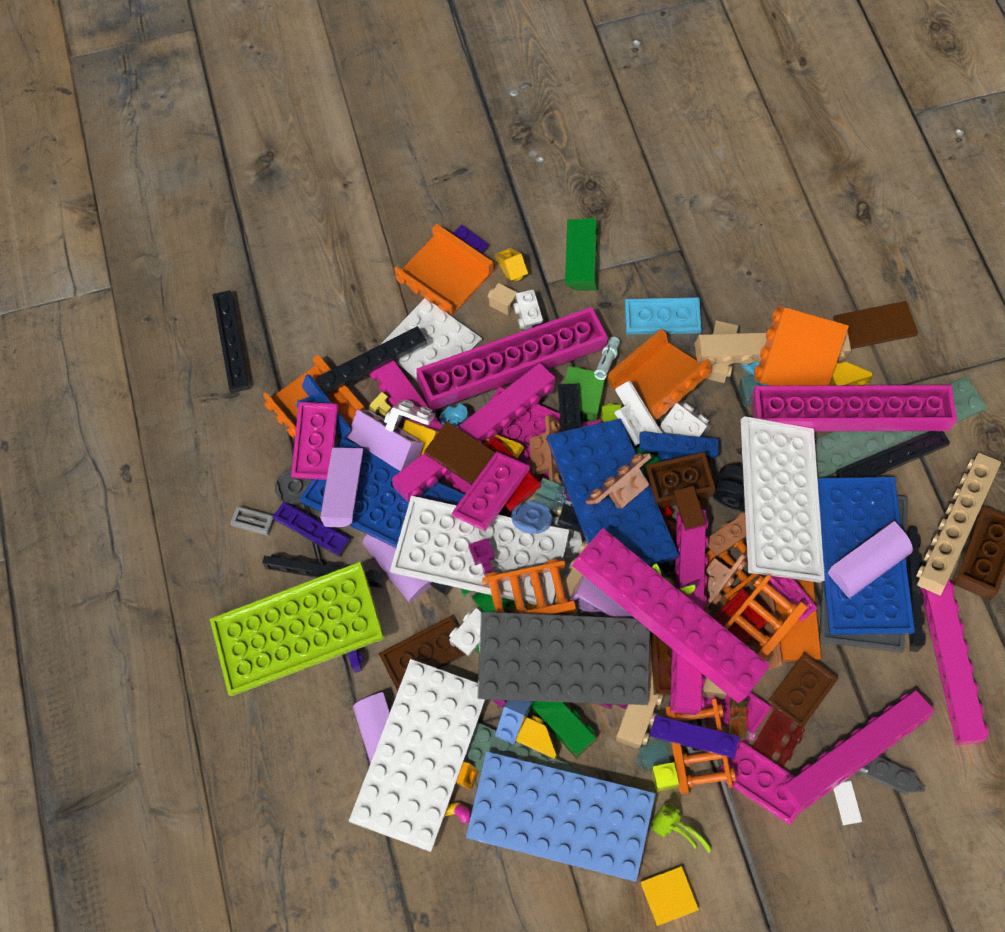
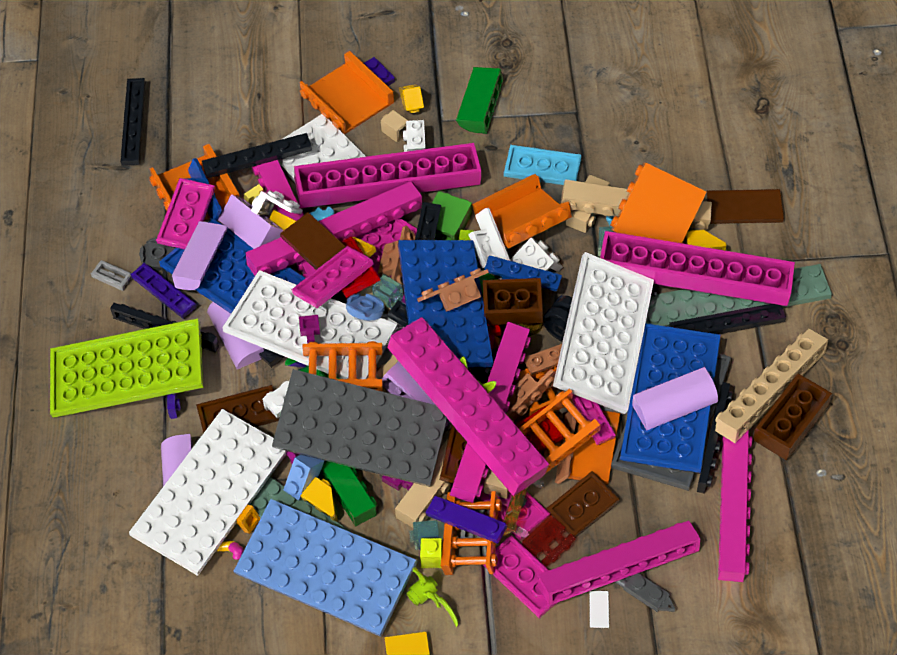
camera: 10 degrees right, 10 degrees down
(609, 353) = (481, 187): light aqua pin -> none
(689, 508) = (512, 322): reddish brown tile -> none

